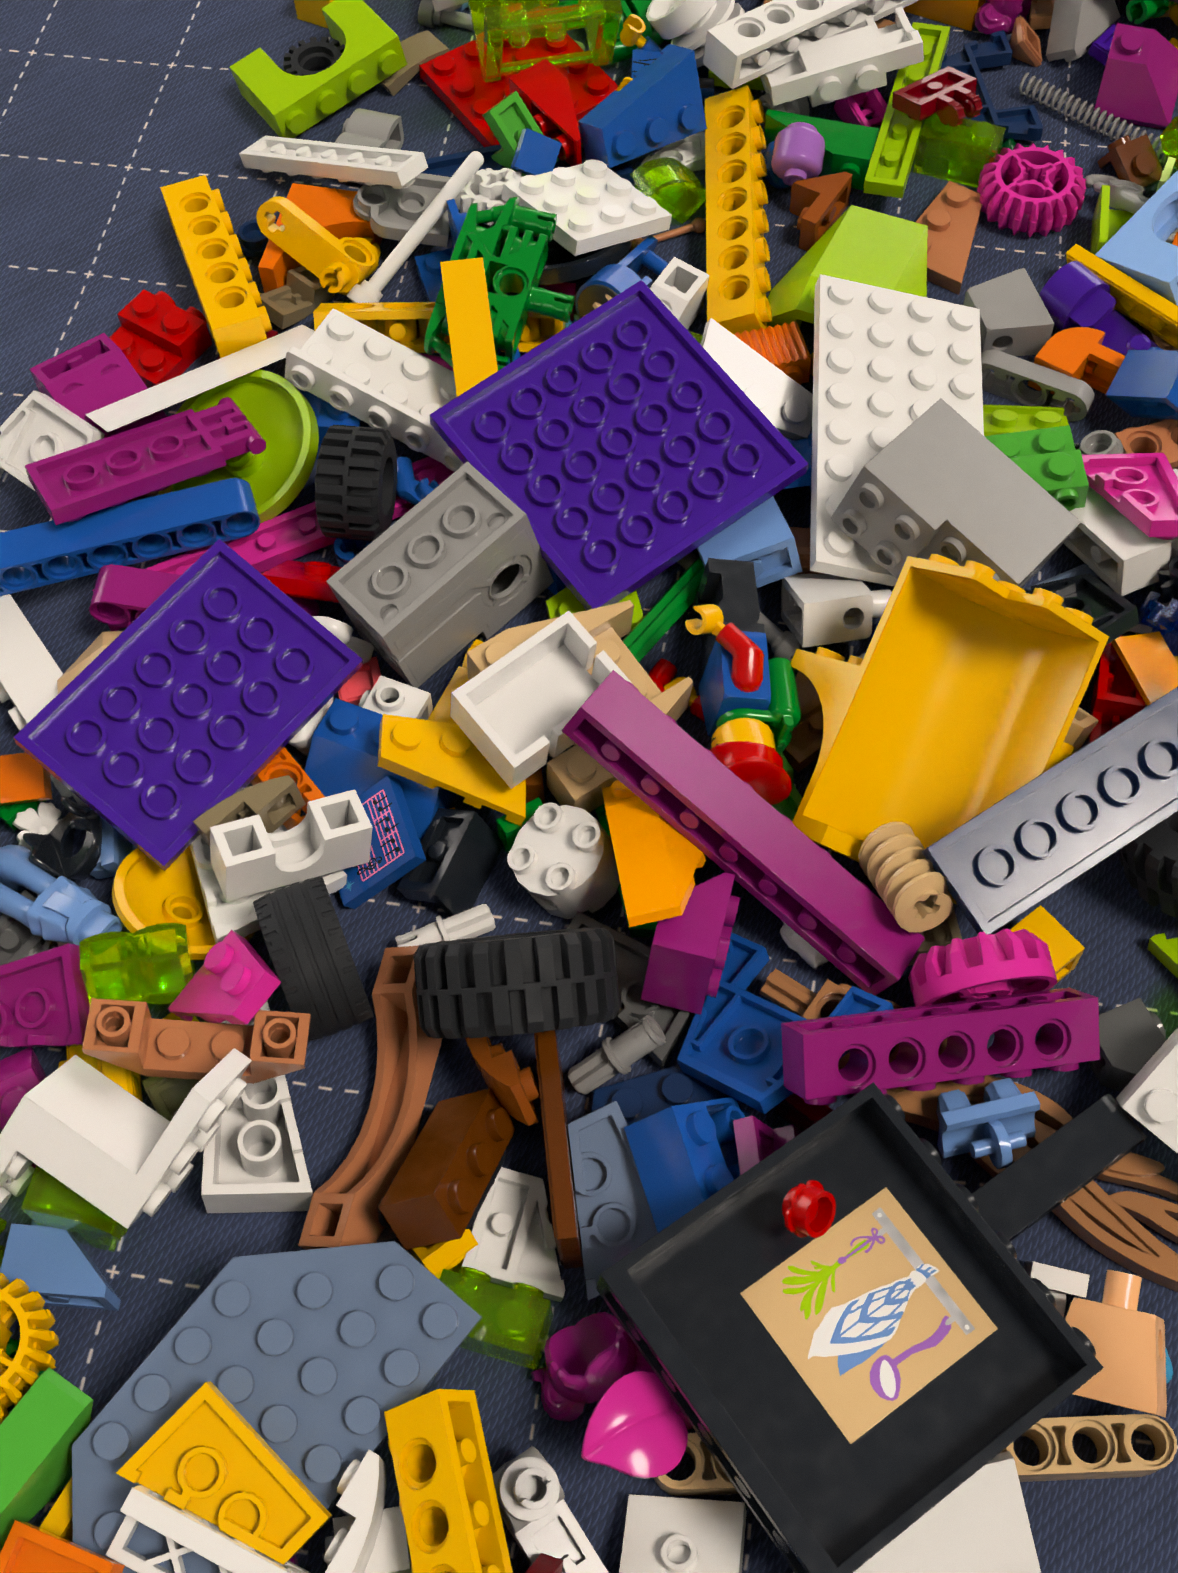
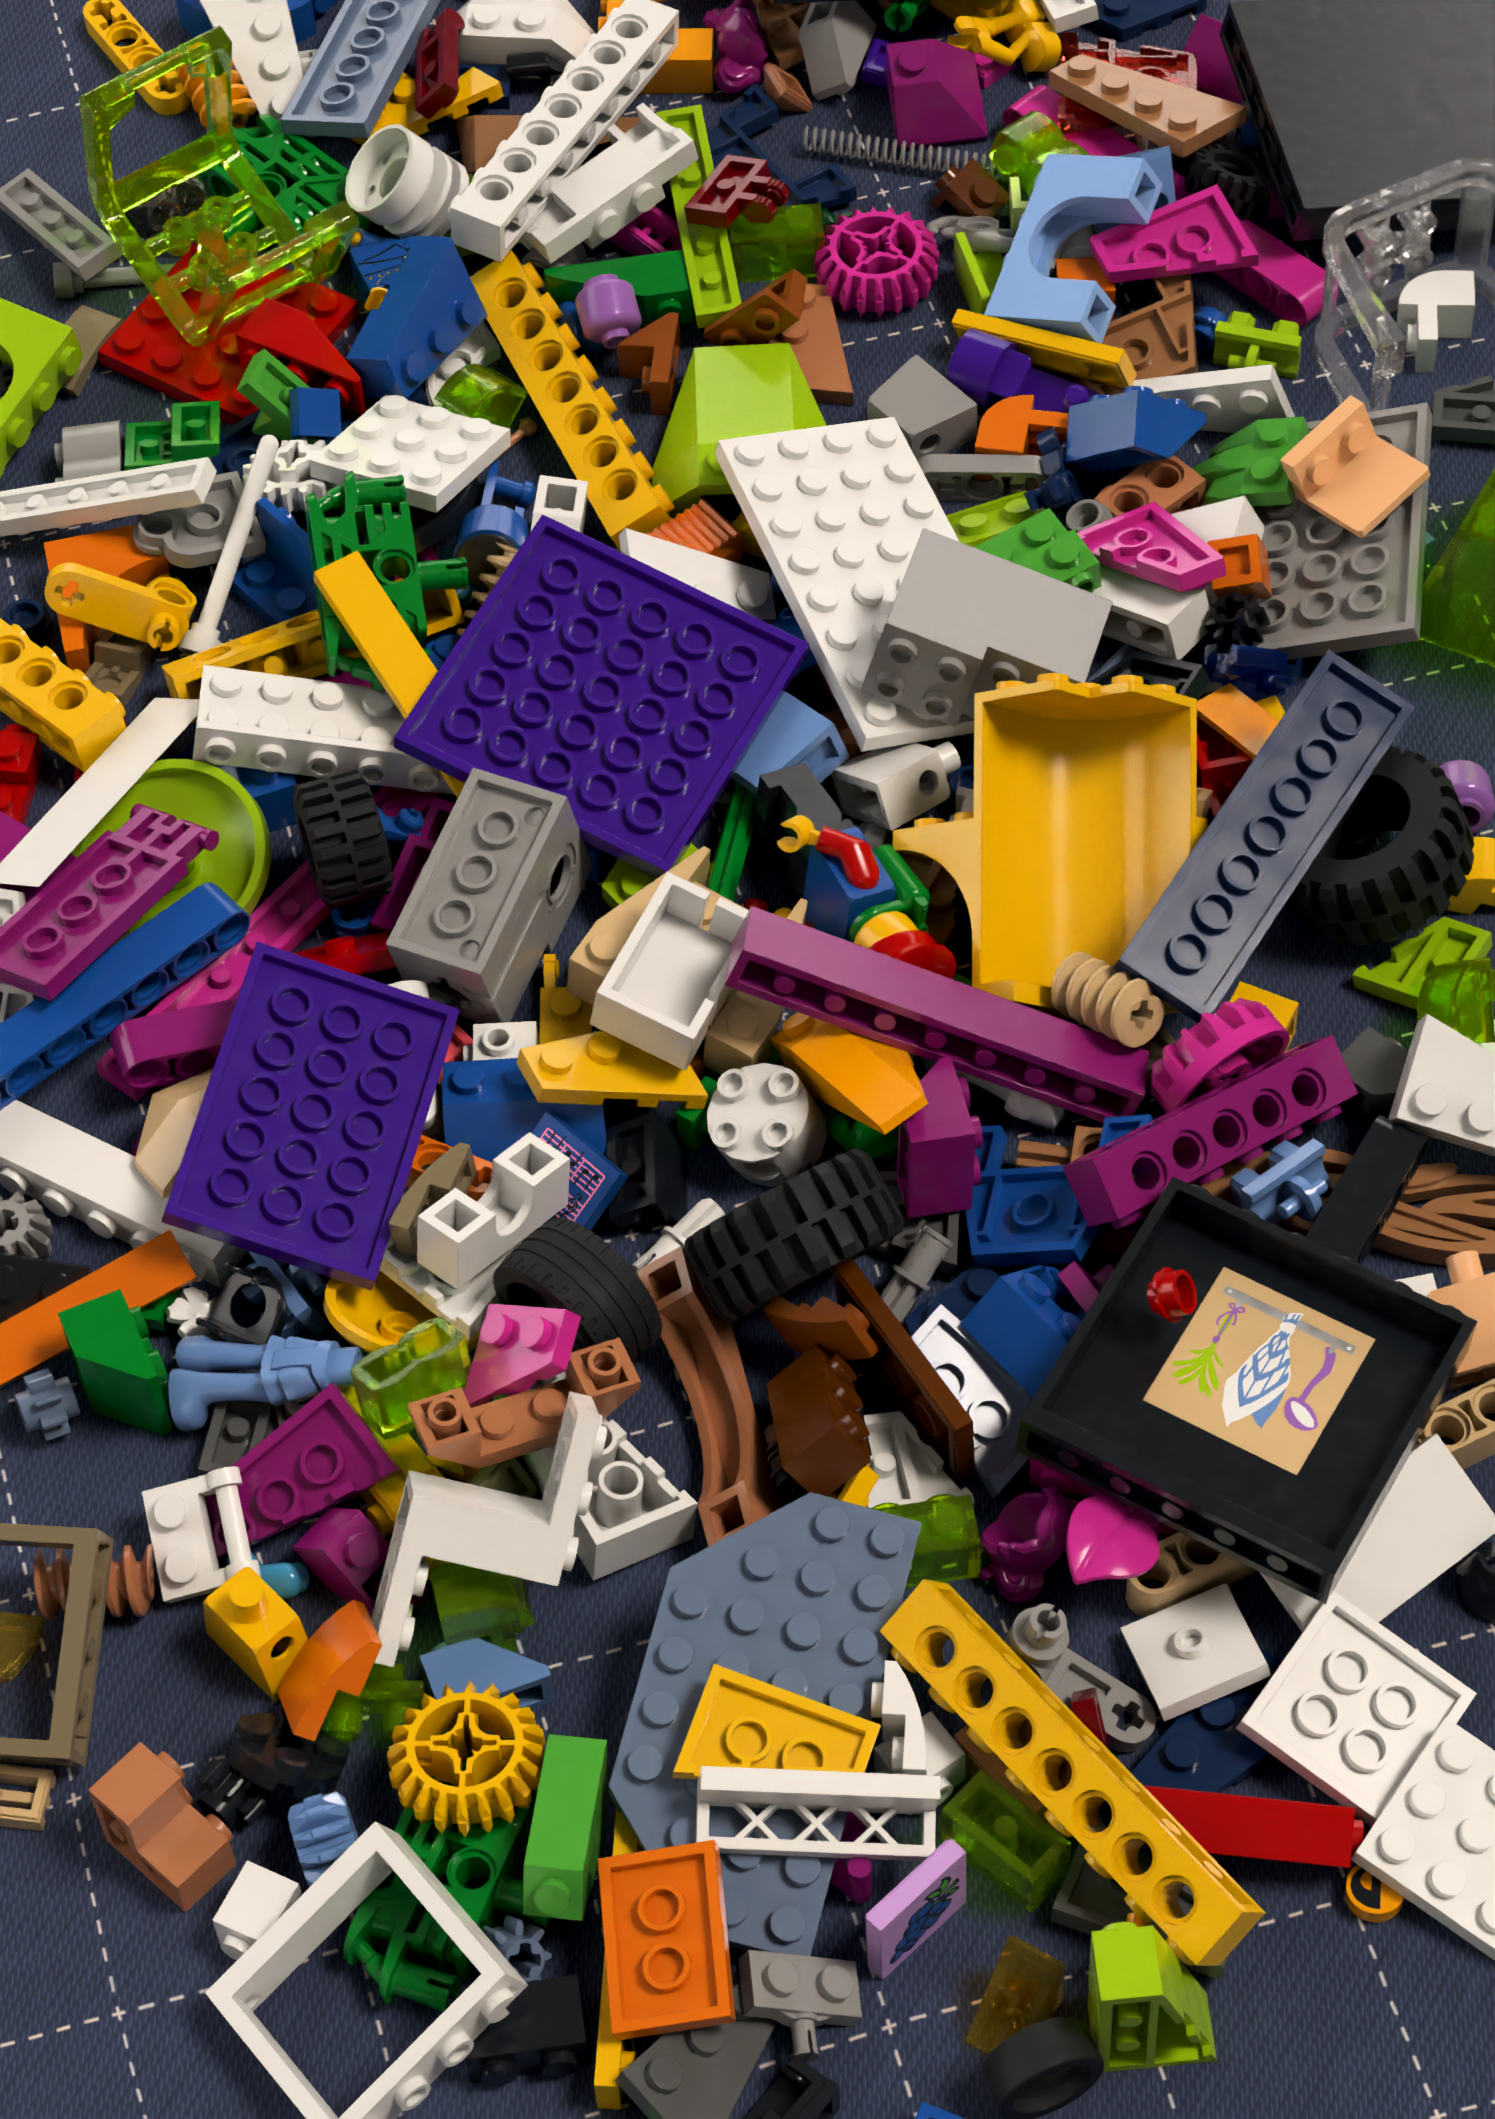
camera: 25 degrees left, 5 degrees down
(437, 144) = (188, 436): none -> green slope
(916, 194) = (761, 314): none -> dark orange bracket
(1093, 413) = (1061, 487): none -> dark blue piece

